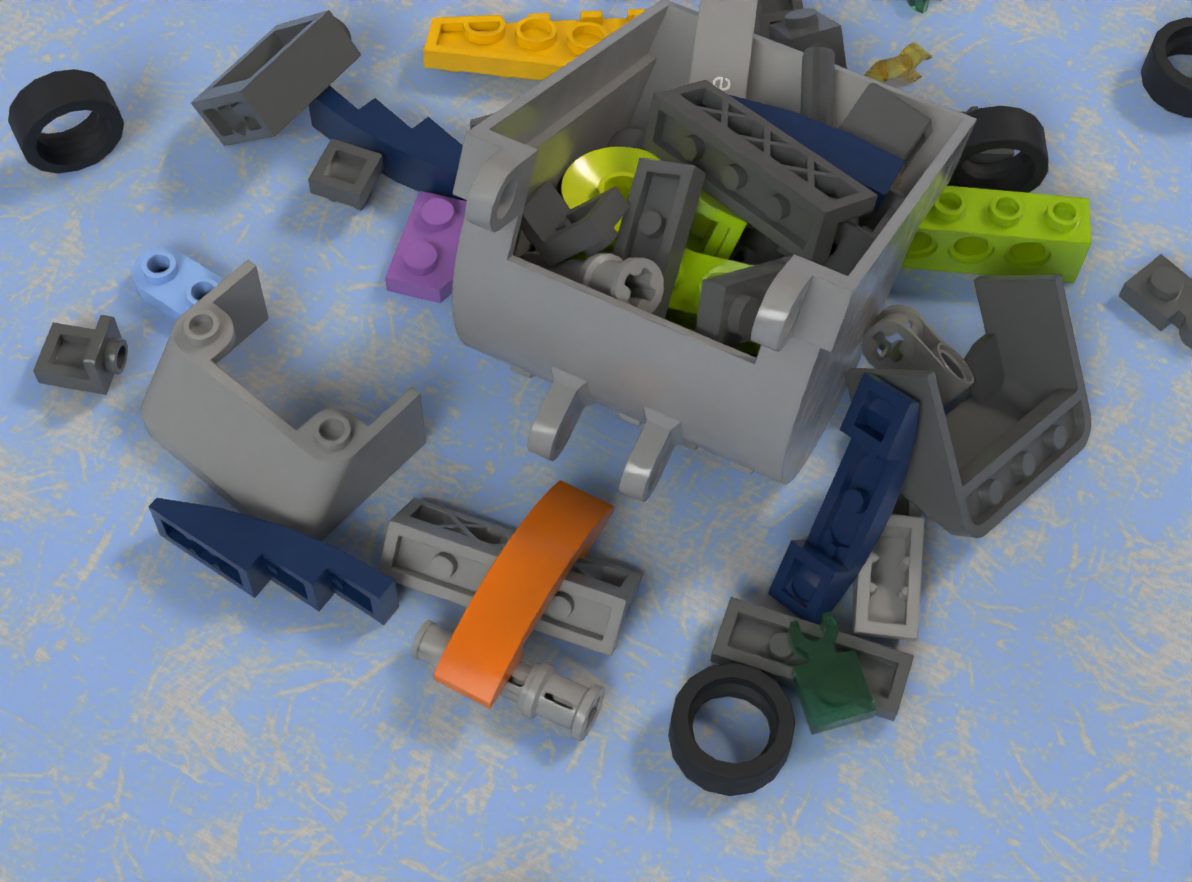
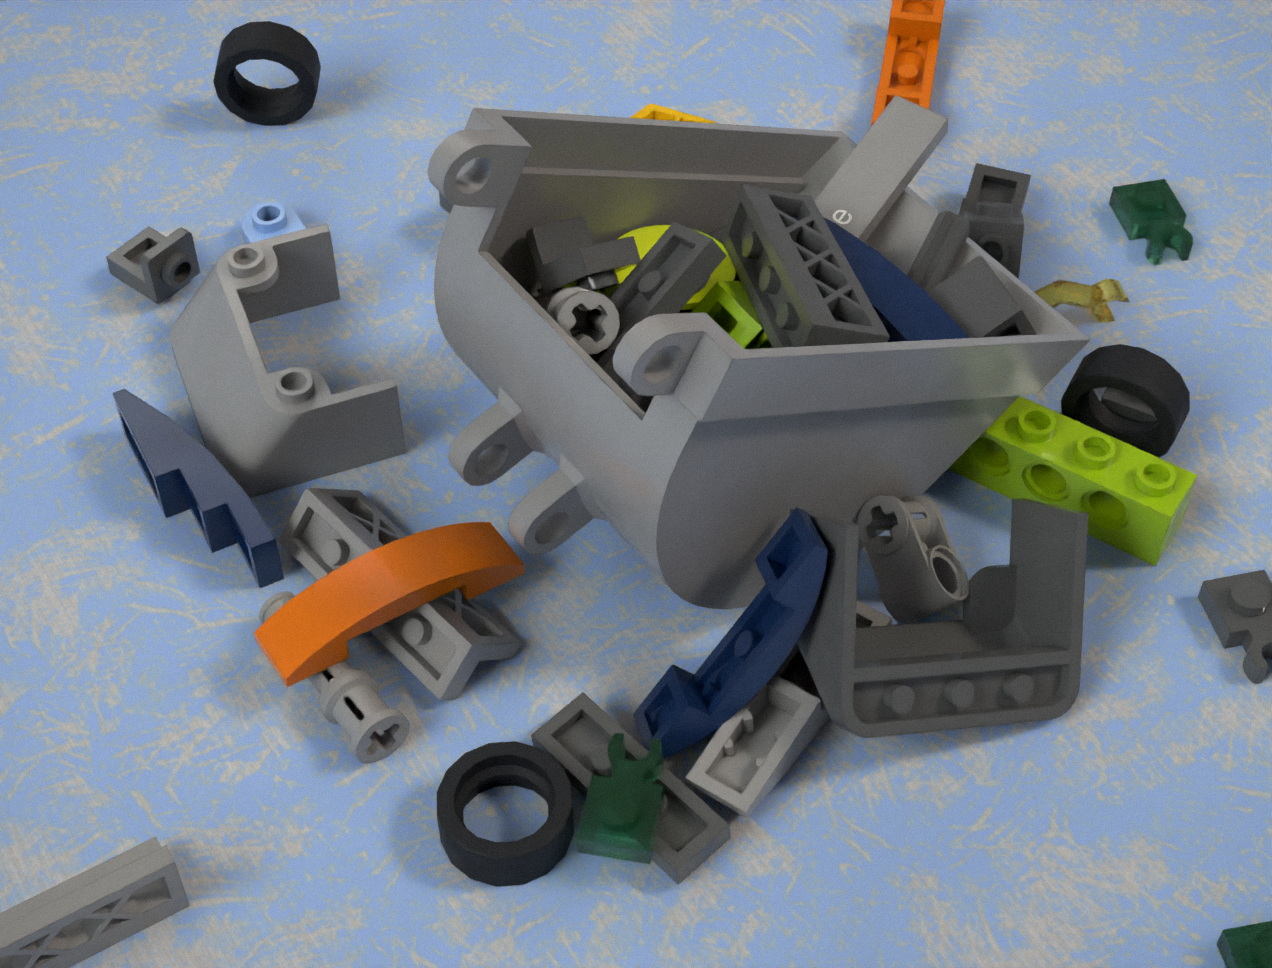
camera: 30 degrees right, 10 degrees down
(277, 78) = (446, 101): dark grey window -> none

